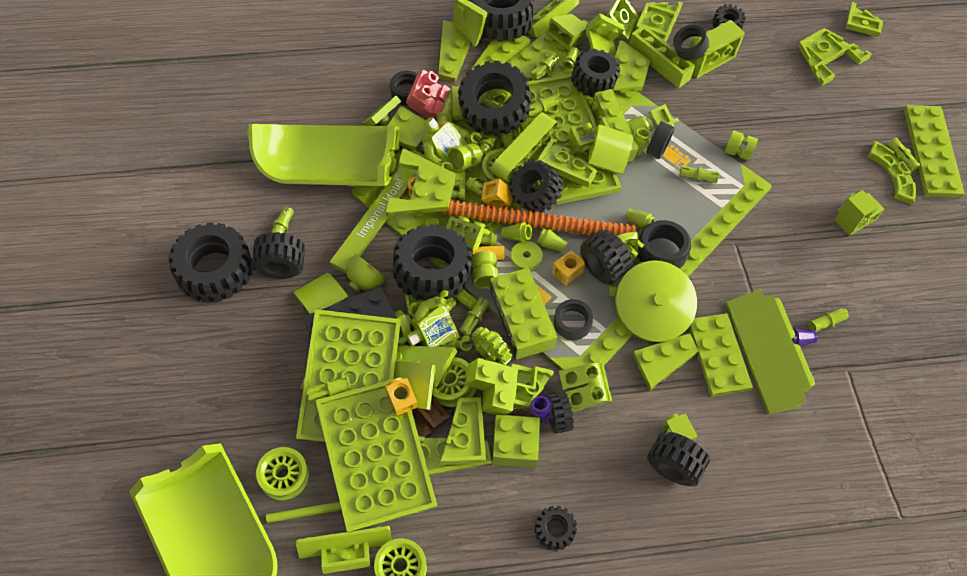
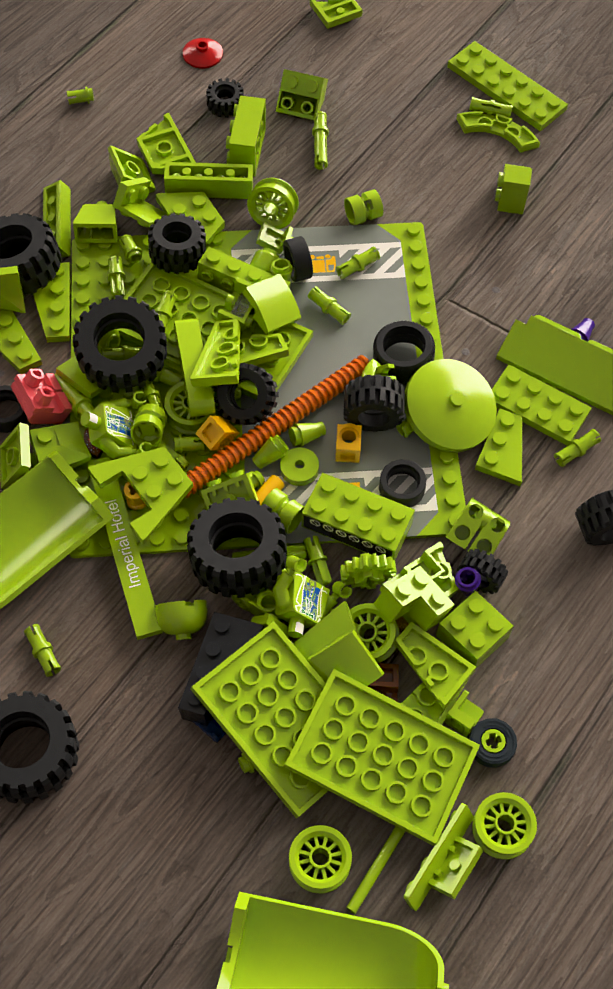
camera: 45 degrees left, 0 degrees up
(278, 255) = (86, 676): black tyre -> none
(320, 293) = (161, 675): lime slope -> none
(328, 388) = (283, 742): lime axle -> none
(401, 405) = (367, 679): yellow brick -> none
(453, 526) = (505, 748): none -> black bush
(454, 481) = (463, 715): none -> lime panel
(539, 150) = (220, 356): none -> lime wing
(551, 541) = (573, 680): black tyre -> none
(639, 218) = (356, 346): lime cone -> none
(651, 183) = (329, 305): none -> lime pin
(680, 425) = (578, 493): lime brick -> none
(683, 97) = (273, 202): none -> lime wheel
(687, 32) = (221, 133): black tyre -> none
(713, 402) = (577, 447): none -> lime pin
(765, 83) = (320, 135): none -> lime pin
(779, 52) = (301, 94): none -> lime slope
(825, 47) = (332, 61): lime wing -> none
(828, 320) = (584, 300): lime axle -> none

